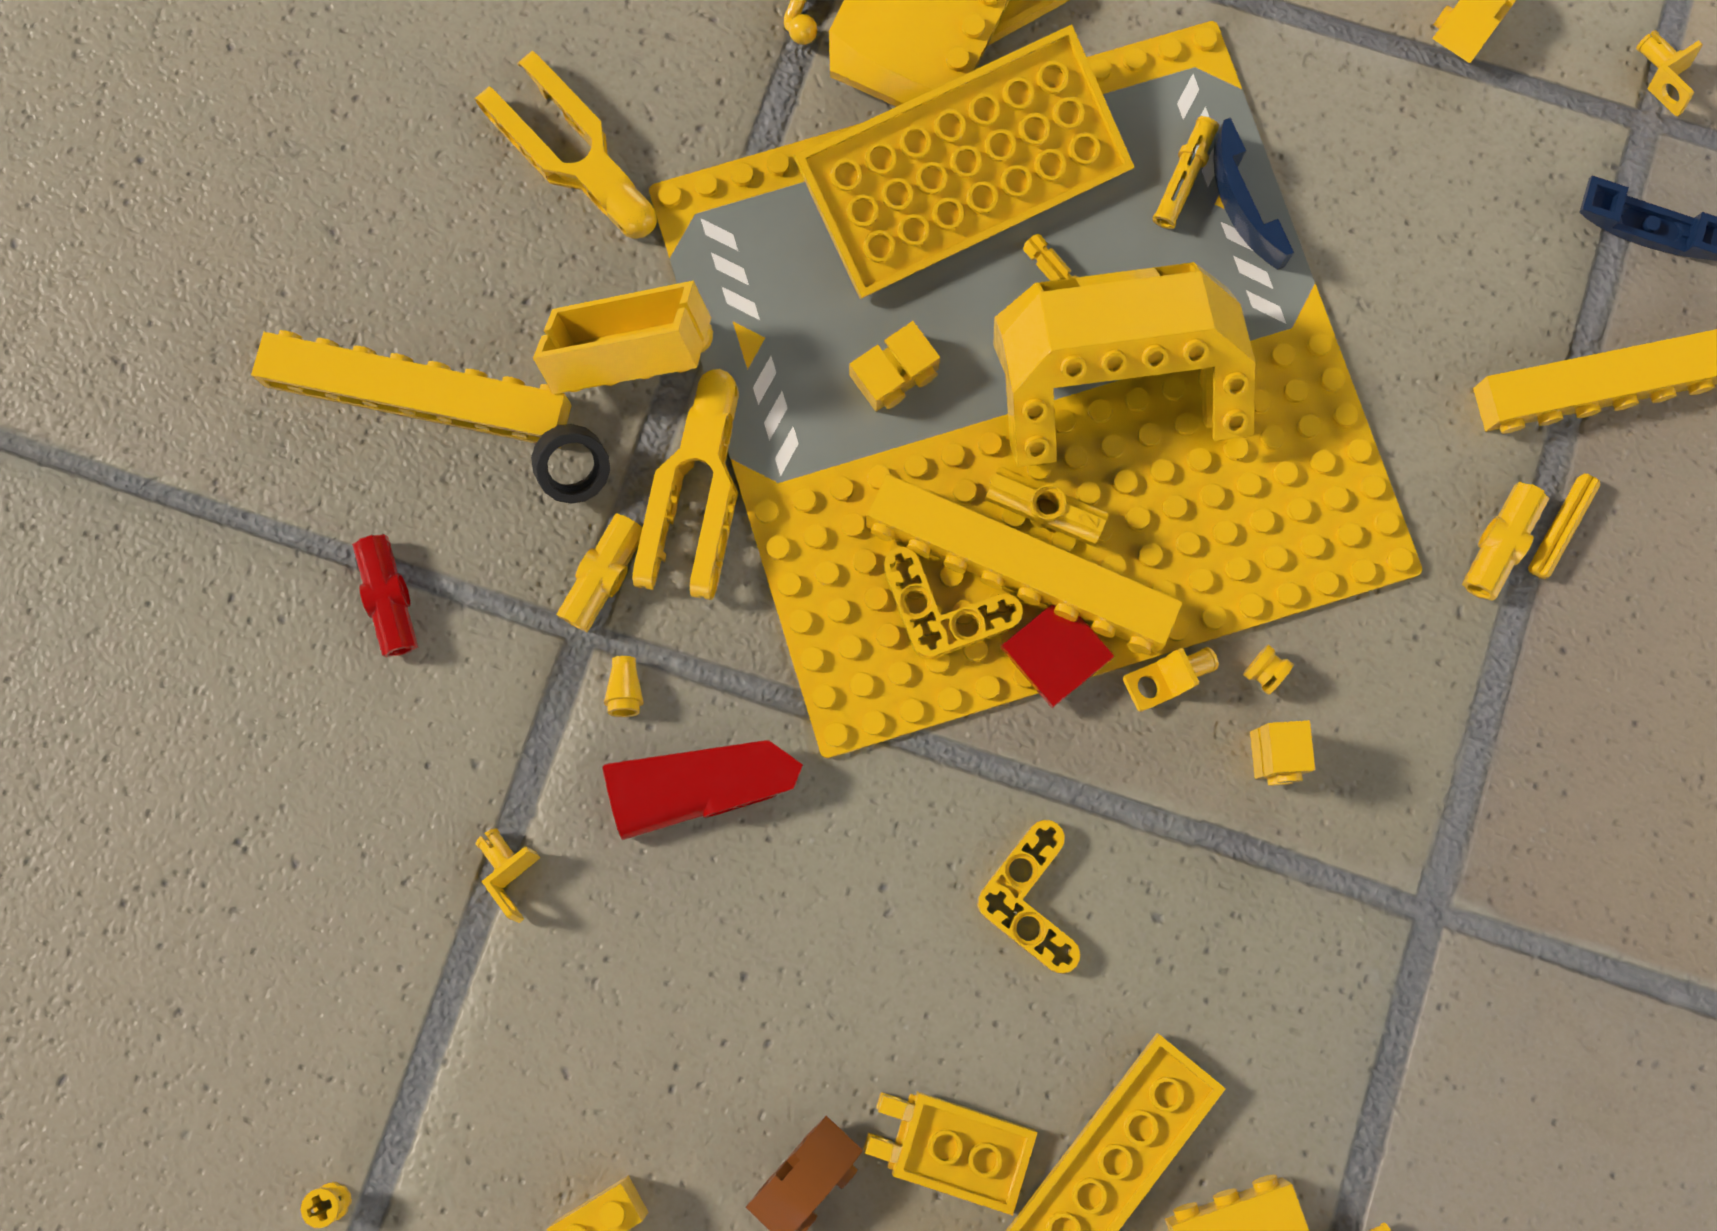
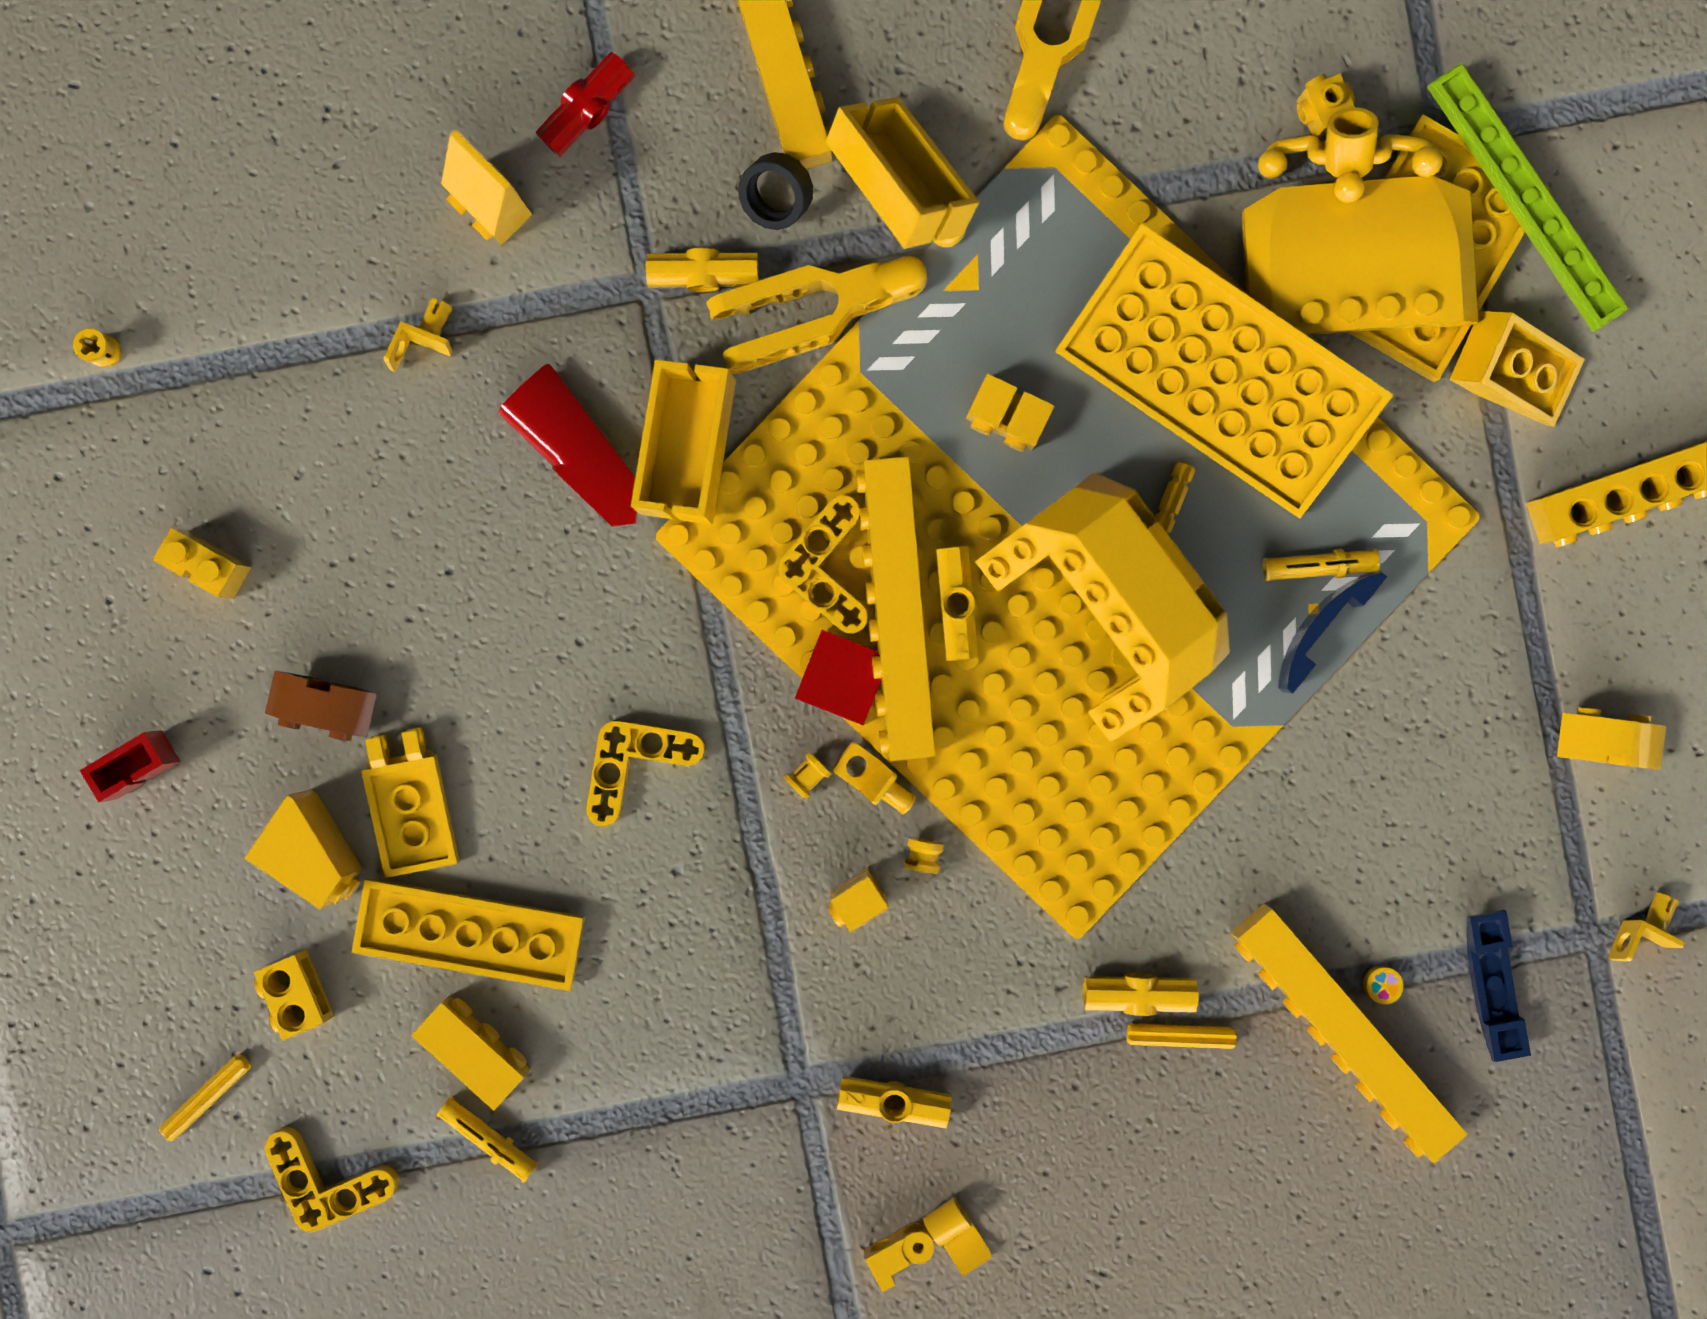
camera: 60 degrees right, 10 degrees up
(406, 731) = (481, 192): none -> yellow slope
(623, 689) = (617, 344): yellow cone -> none
(753, 675) = (683, 442): none -> yellow piece
(1133, 737) = (807, 775): none -> yellow bush
(1513, 809) = (919, 1105): none -> yellow piece
(1605, 321) = (1383, 984): none -> yellow tile
(1650, 906) = (898, 1251): none -> yellow leg
(1662, 840) = (956, 1232): none -> yellow panel

